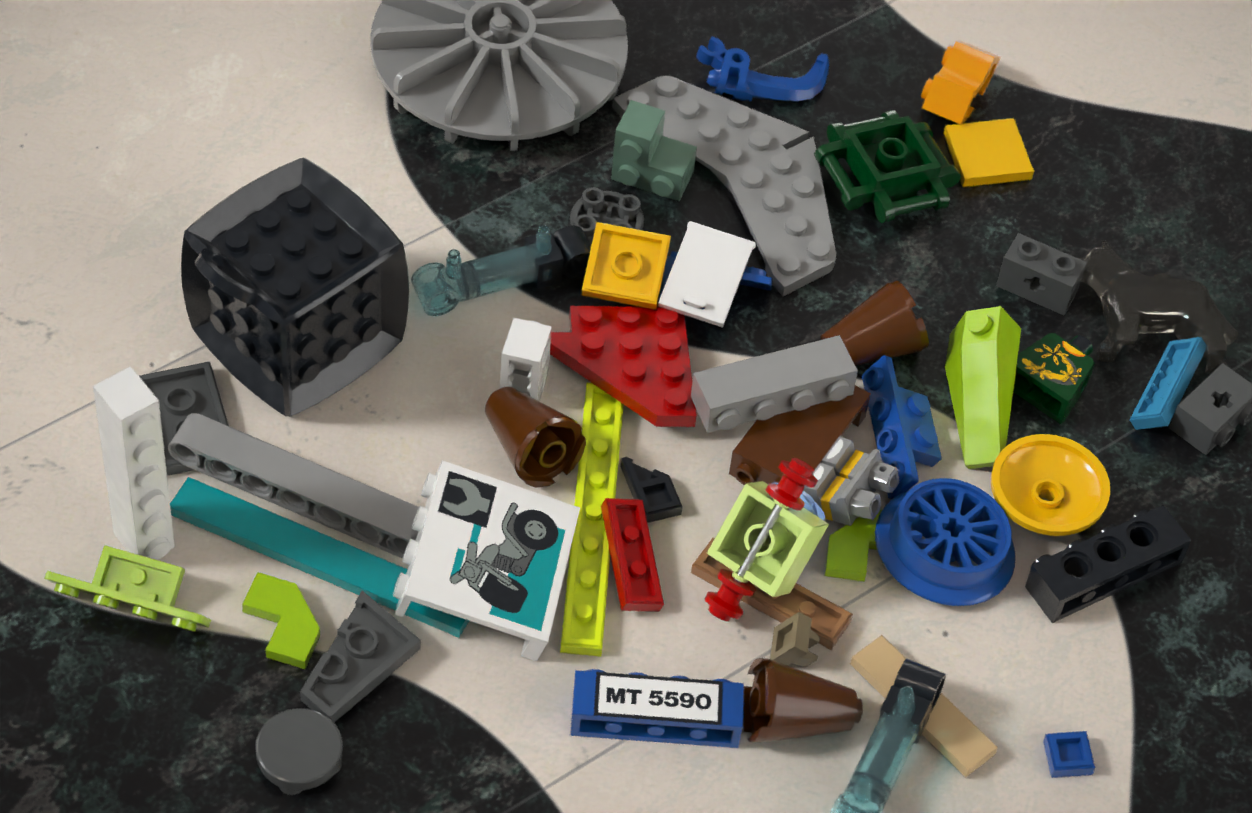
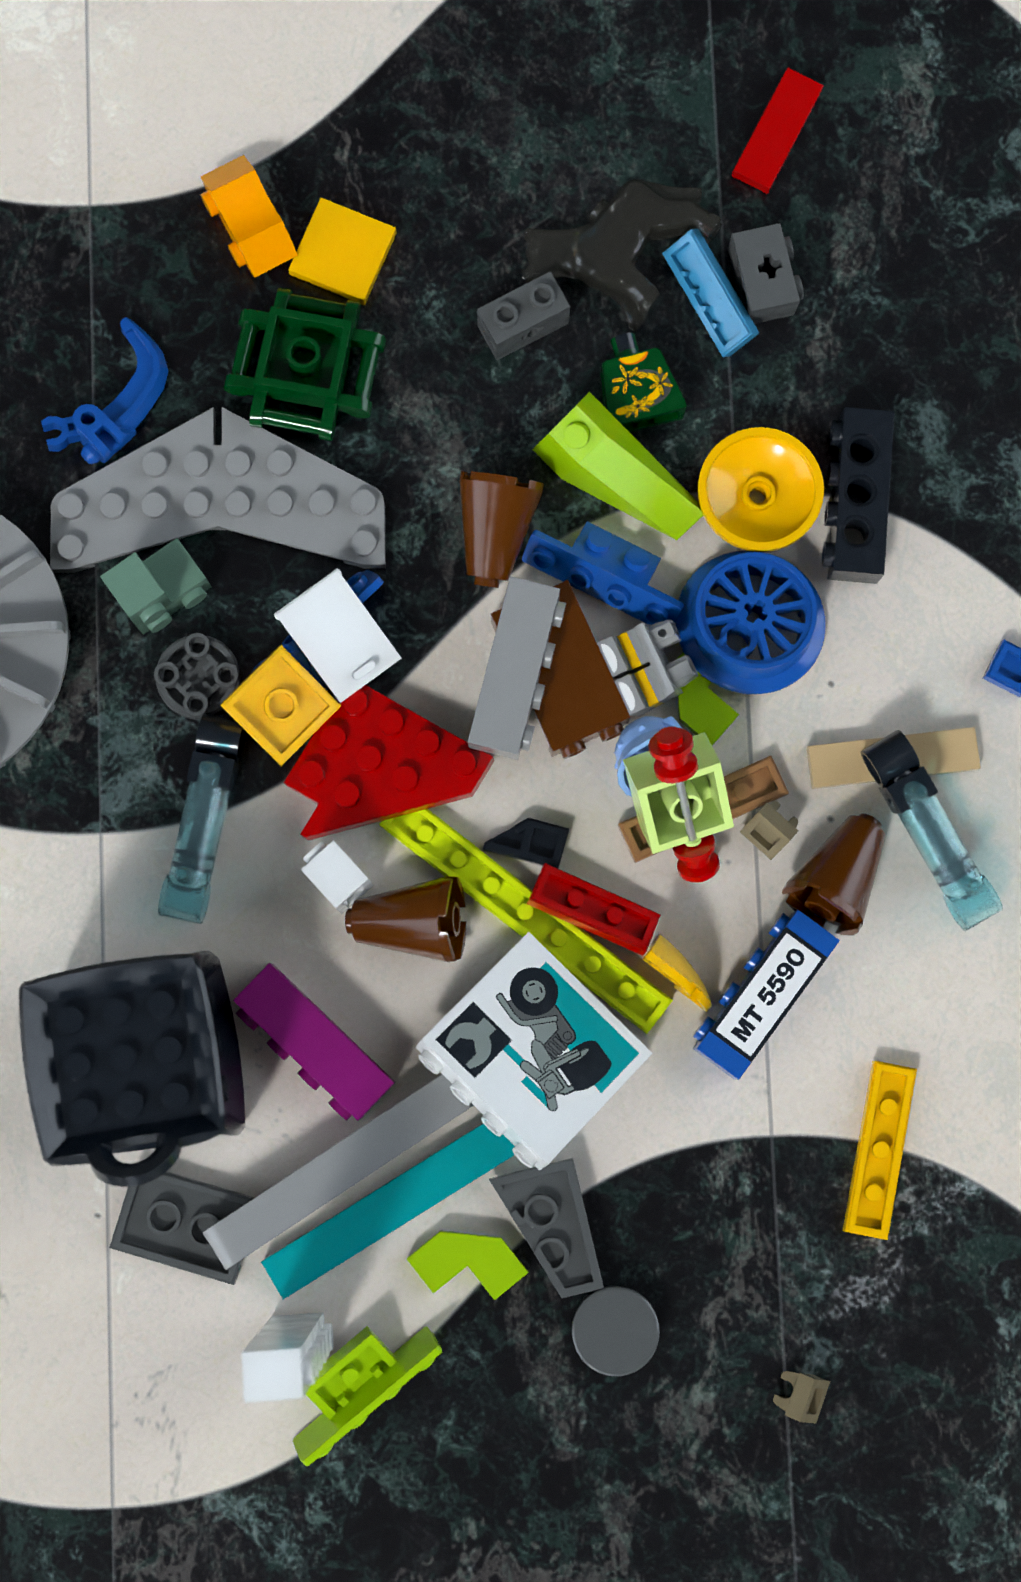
camera: 55 degrees left, 30 degrees up
(387, 419) = (314, 1042): none -> magenta brick
(630, 624) = (675, 967): none -> yellow brick

